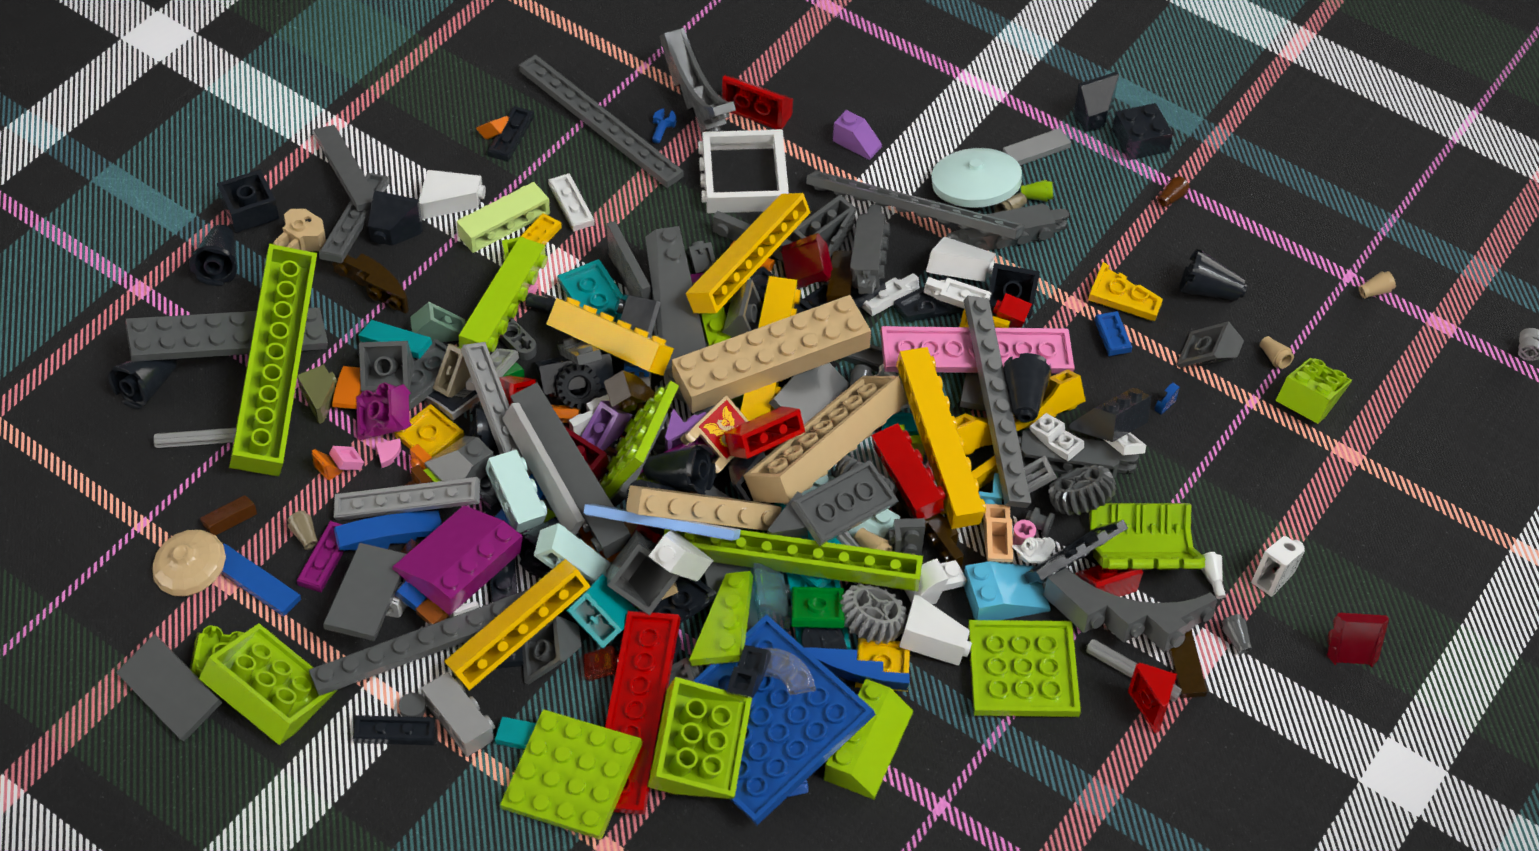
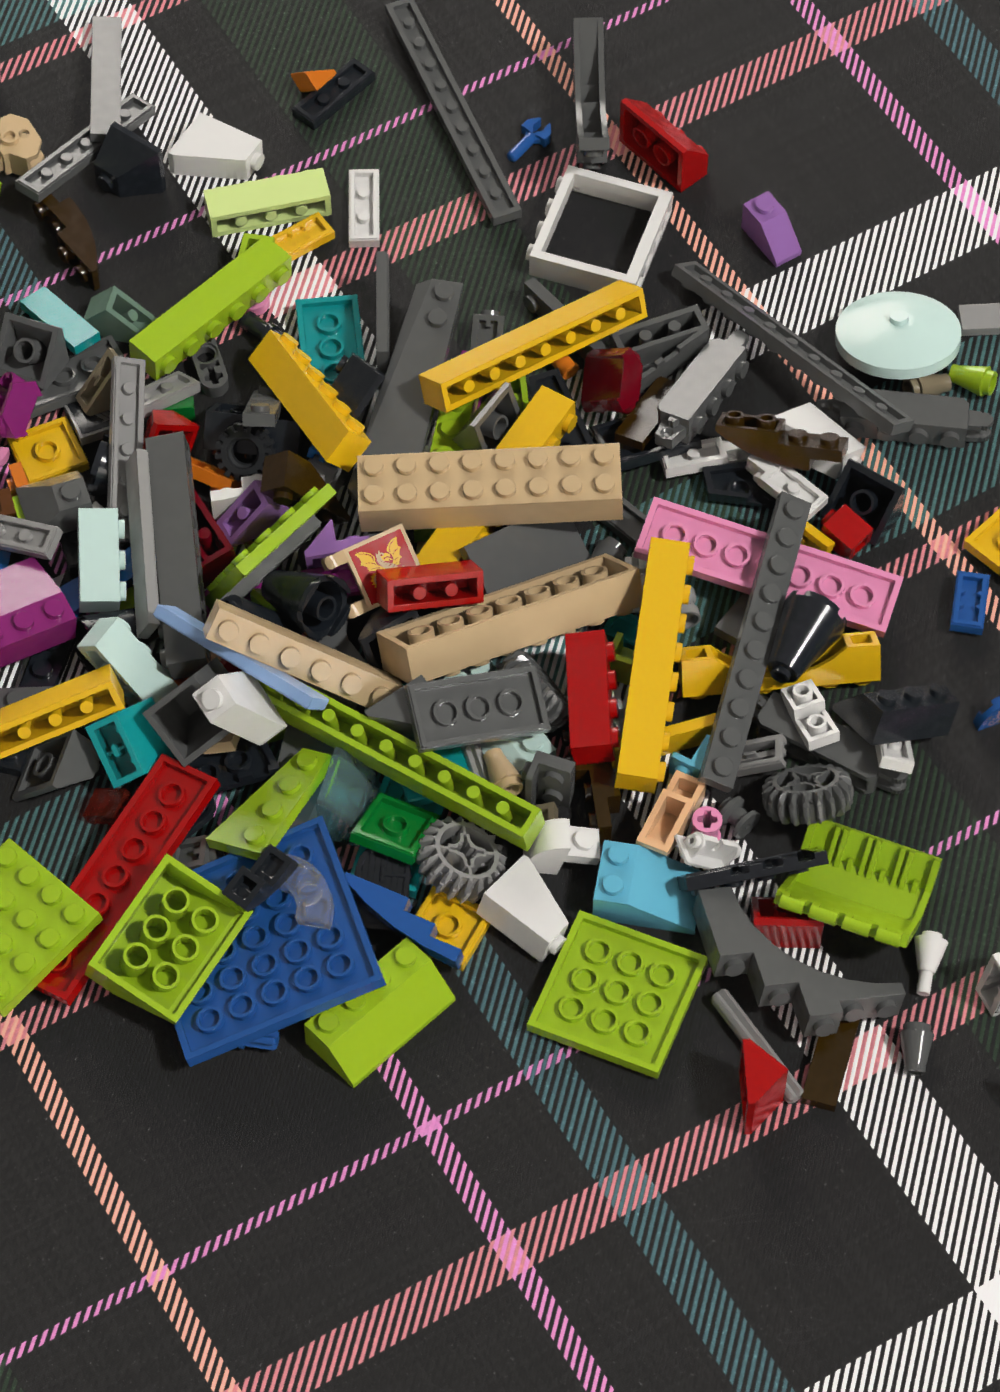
camera: 25 degrees right, 5 degrees up
(936, 267) = (767, 439): none -> dark brown slope

